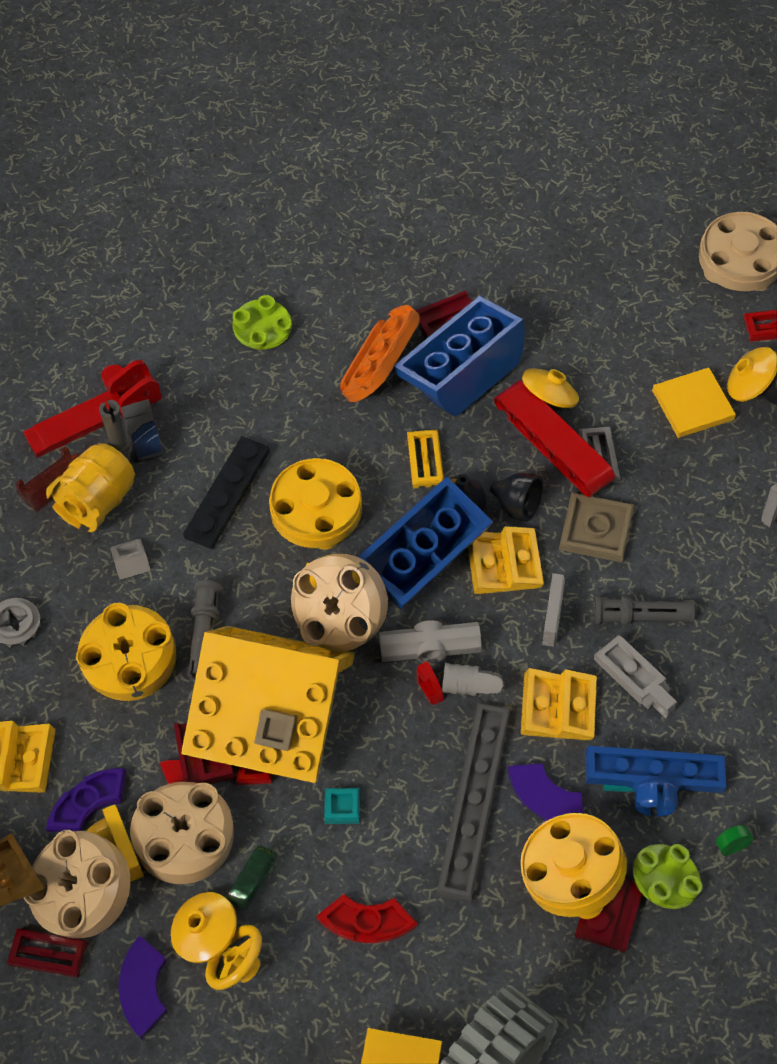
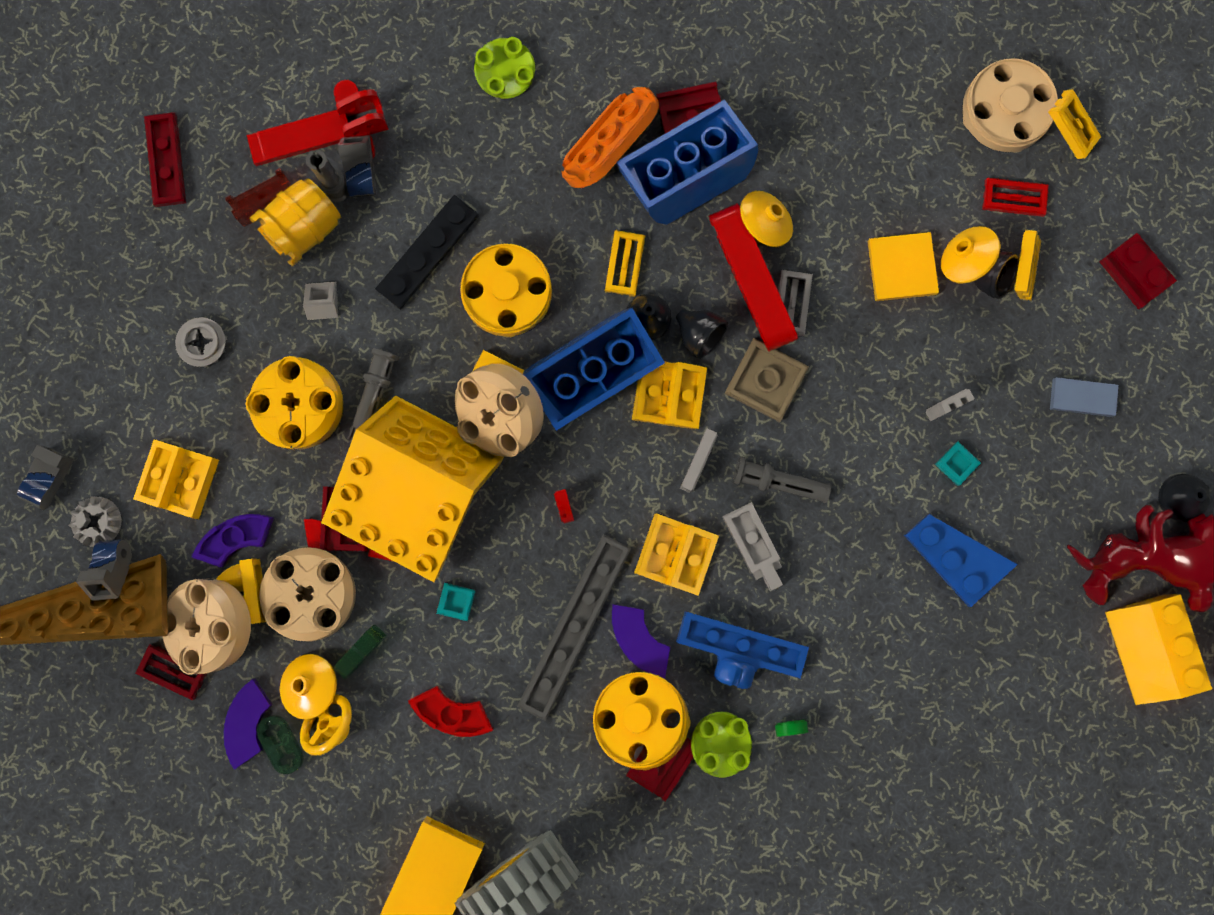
camera: 15 degrees right, 25 degrees up
(179, 1004) = (272, 747): none -> clear green beam
(275, 729) = (405, 532): dark tan tile -> none
(430, 641) = (575, 463): light grey piece -> none
(470, 680) = (604, 512): light grey hinge -> none

